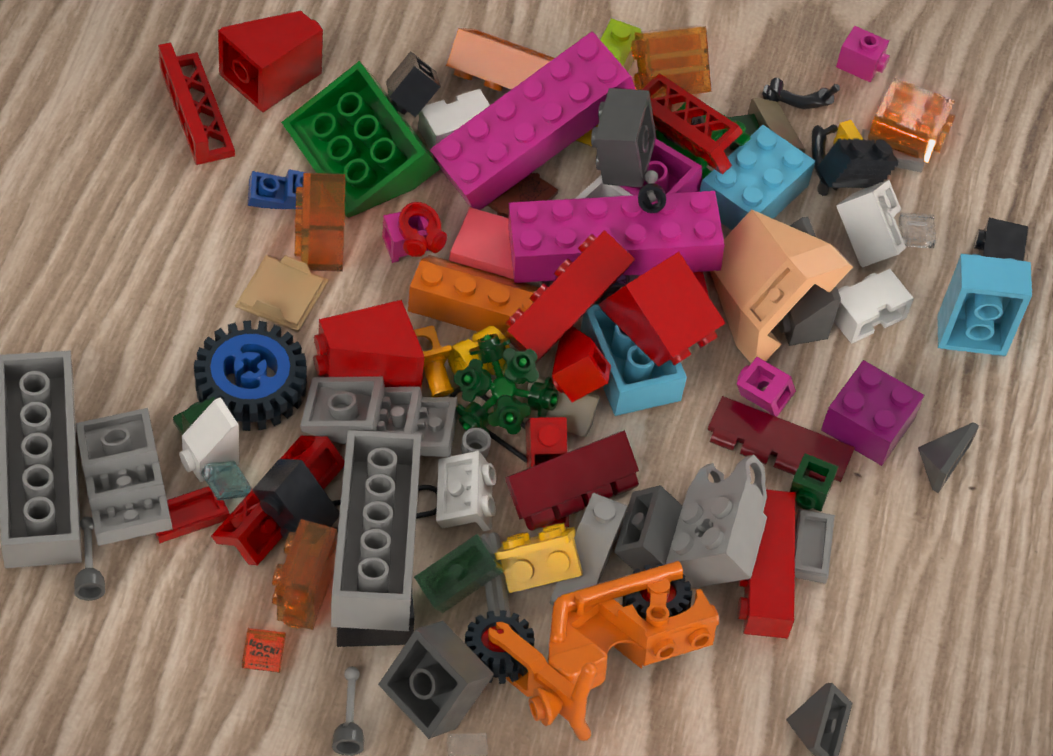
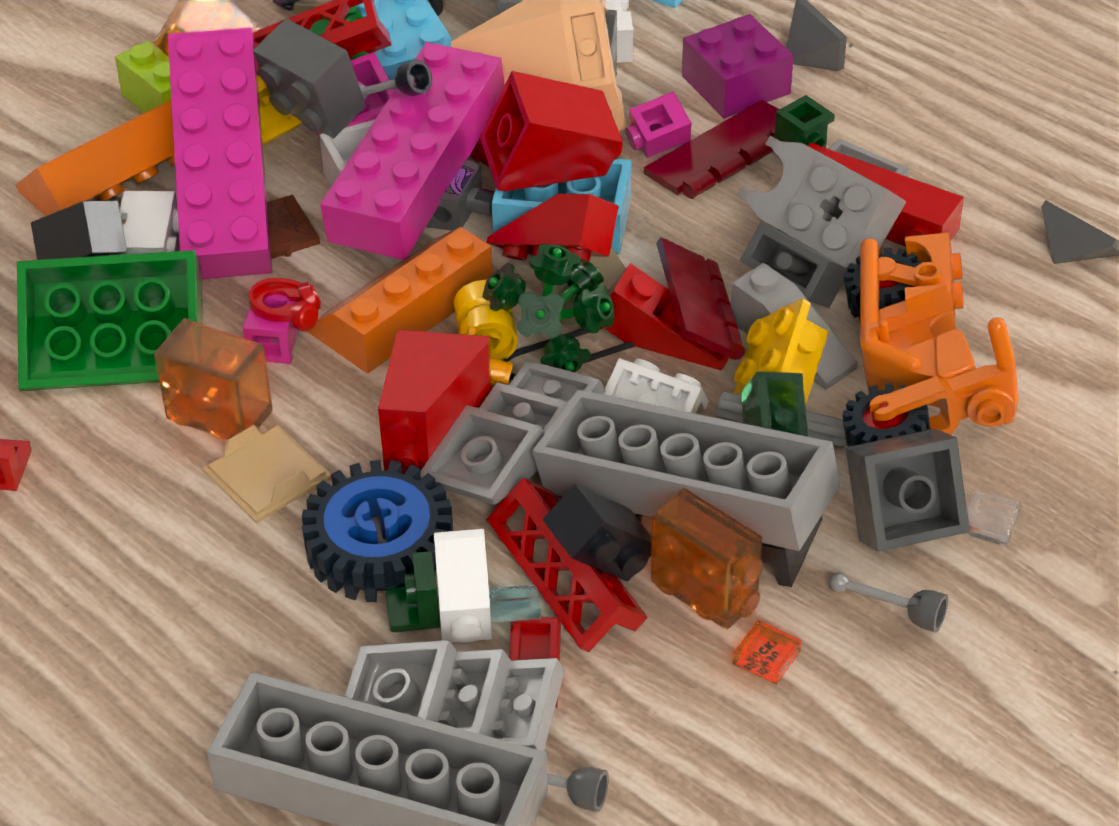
camera: 55 degrees left, 10 degrees down
(273, 190) = (126, 416): blue slope -> none
(476, 440) = (598, 363): light grey hose -> none
(484, 243) = (331, 268): coral tile -> none
(569, 296) = (484, 194): red brick -> none

